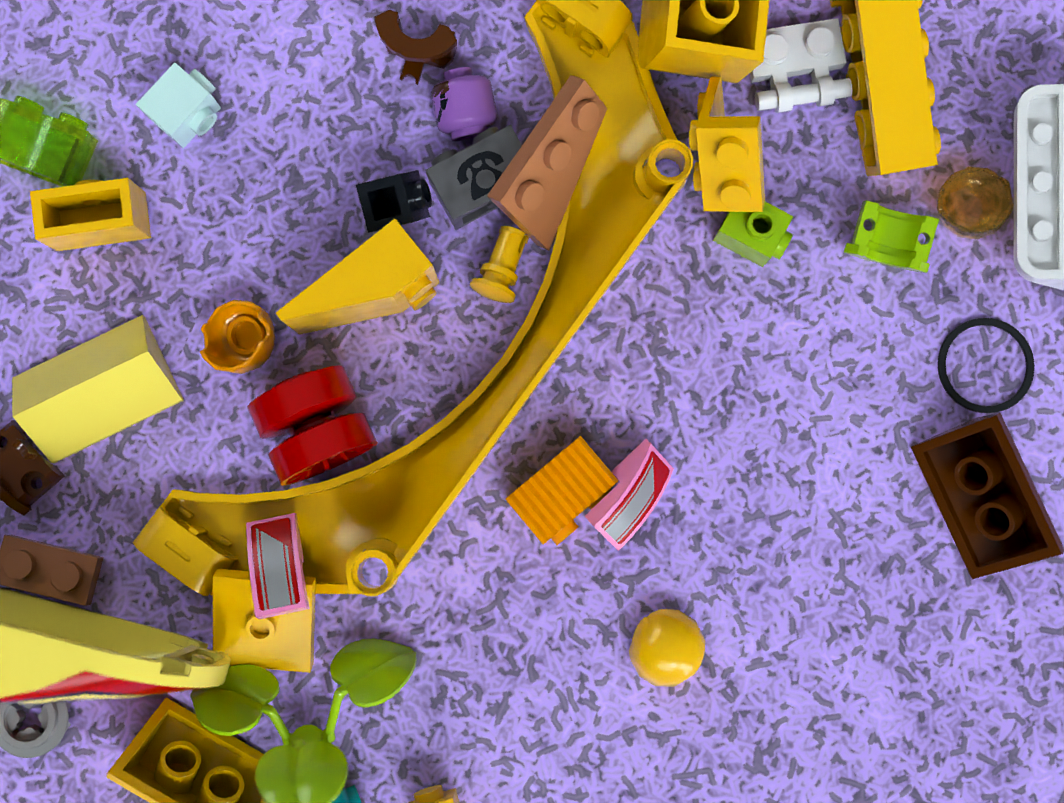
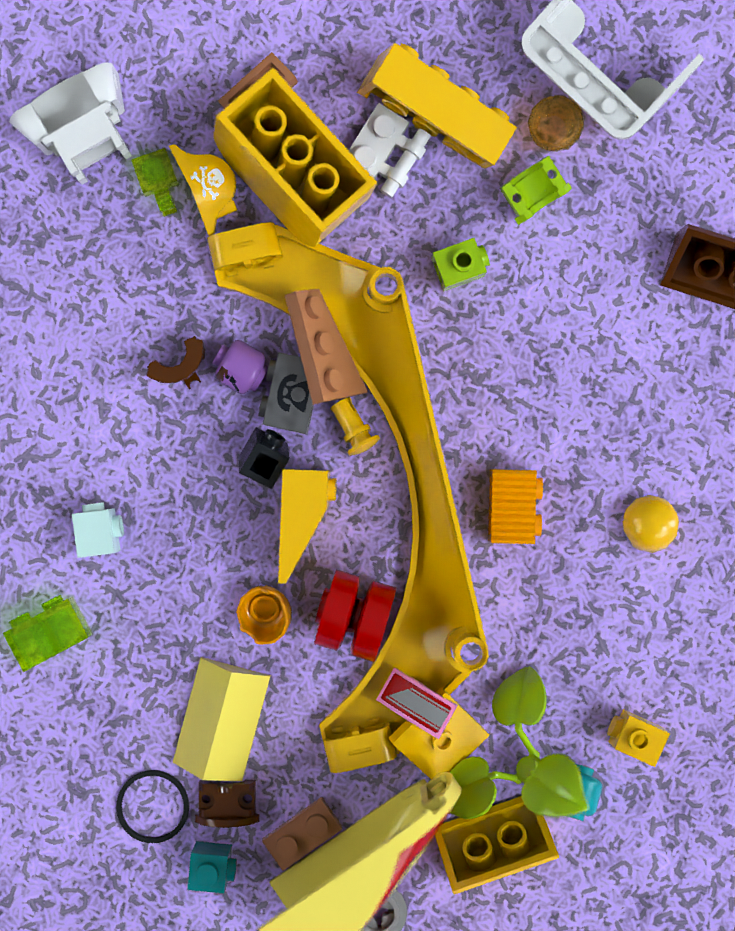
camera: 50 degrees left, 5 degrees up
(90, 214) = (119, 637): yellow brick -> none
(627, 506) = (554, 477): slope -> none
(728, 155) = (410, 246): yellow bracket -> none
(1021, 341) = (680, 181): black piece -> none

